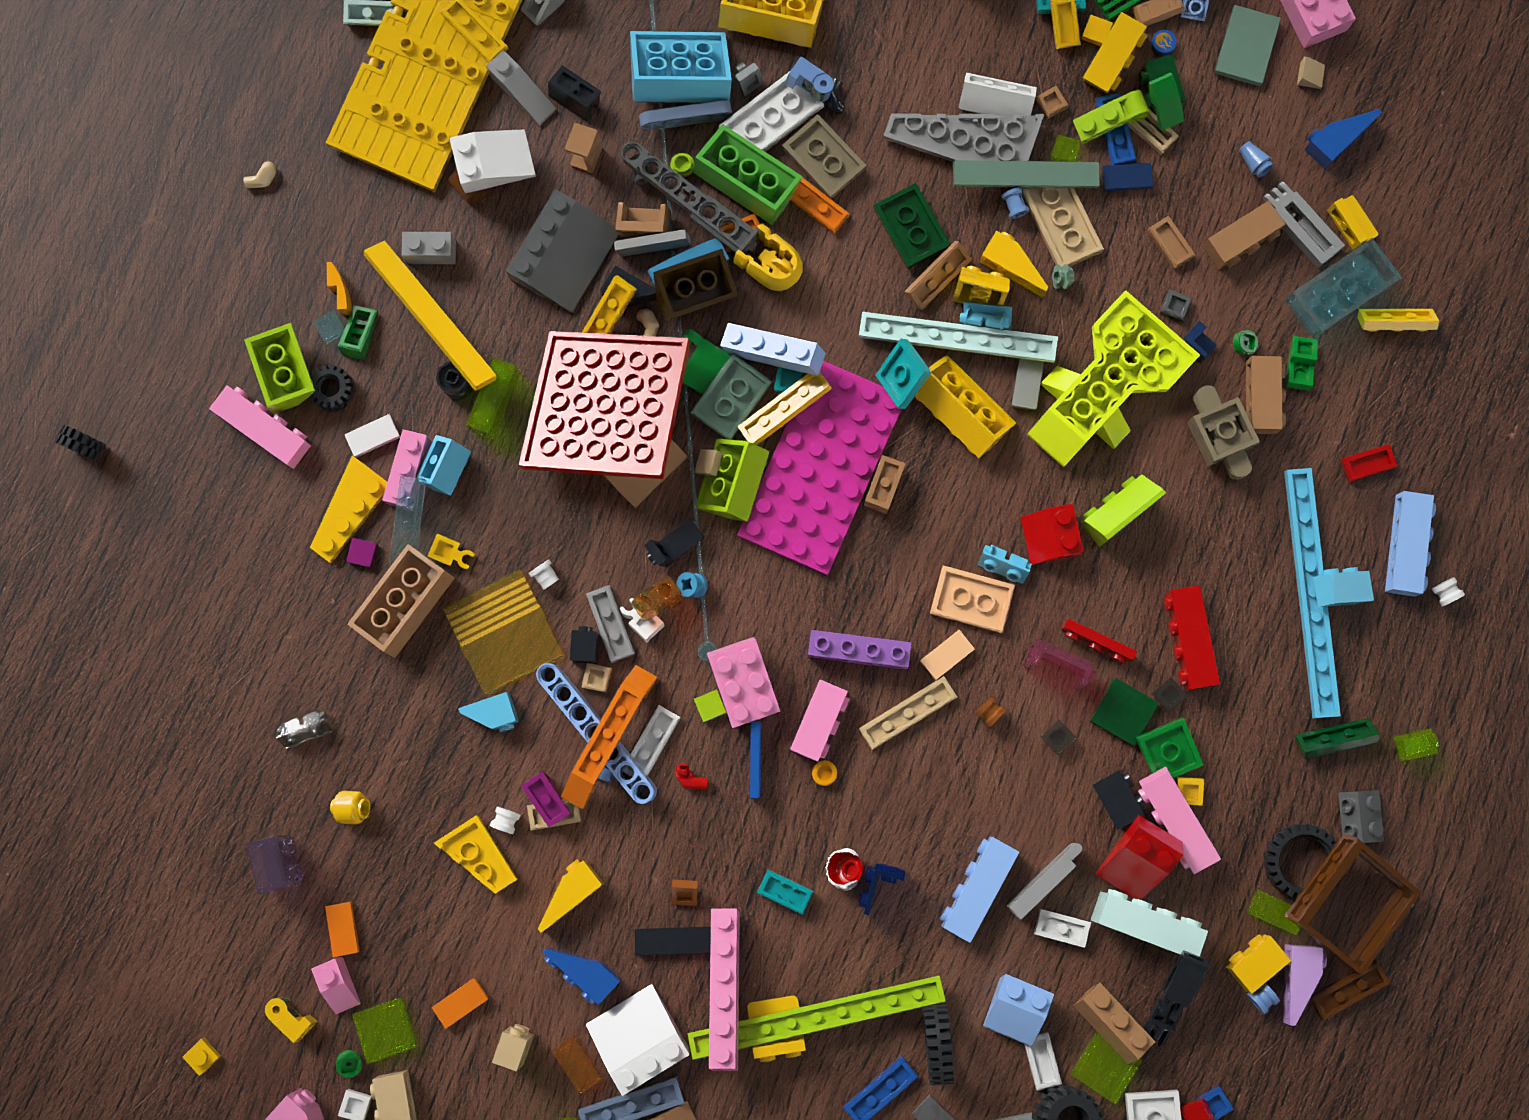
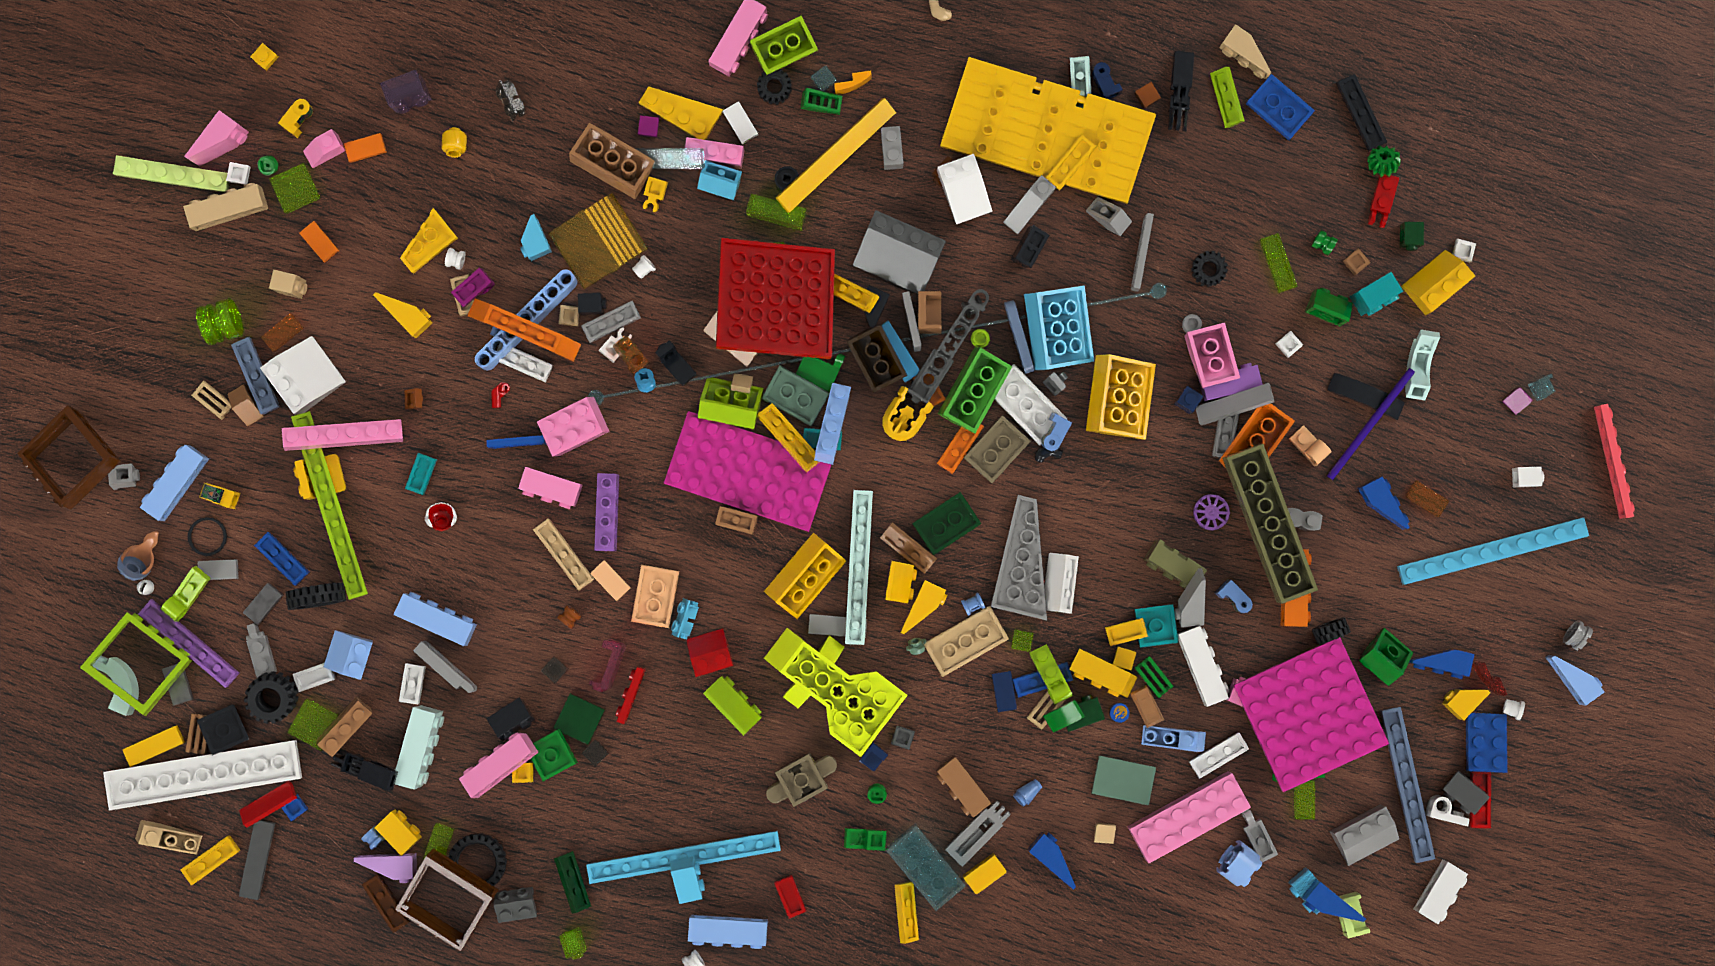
camera: 80 degrees right, 5 degrees up
(585, 146) = (982, 259): medium nougat panel -> none
(589, 974) = (347, 333): blue slope -> none
(649, 321) = (849, 327): tan arm -> none
(672, 940) = (378, 393): black tile -> none
(710, 705) = (555, 402): lime tile -> none
(824, 773) = (512, 495): light orange tile -> none
(888, 874) = (440, 548): clear blue bracket -> none
(903, 373) = (822, 526): teal plate -> none
(987, 315) = (876, 593): medium azure hinge -> none
(1025, 174) = (995, 610): sand green tile -> none
(1051, 102) = (1060, 626): medium nougat tile -> none
(1141, 858) = (467, 738): red slope -> none
(1171, 242) = (953, 730): medium nougat tile -> none
(1191, 638) = (640, 766): red brick -> none
(1265, 393) = (835, 811): medium nougat brick -> none

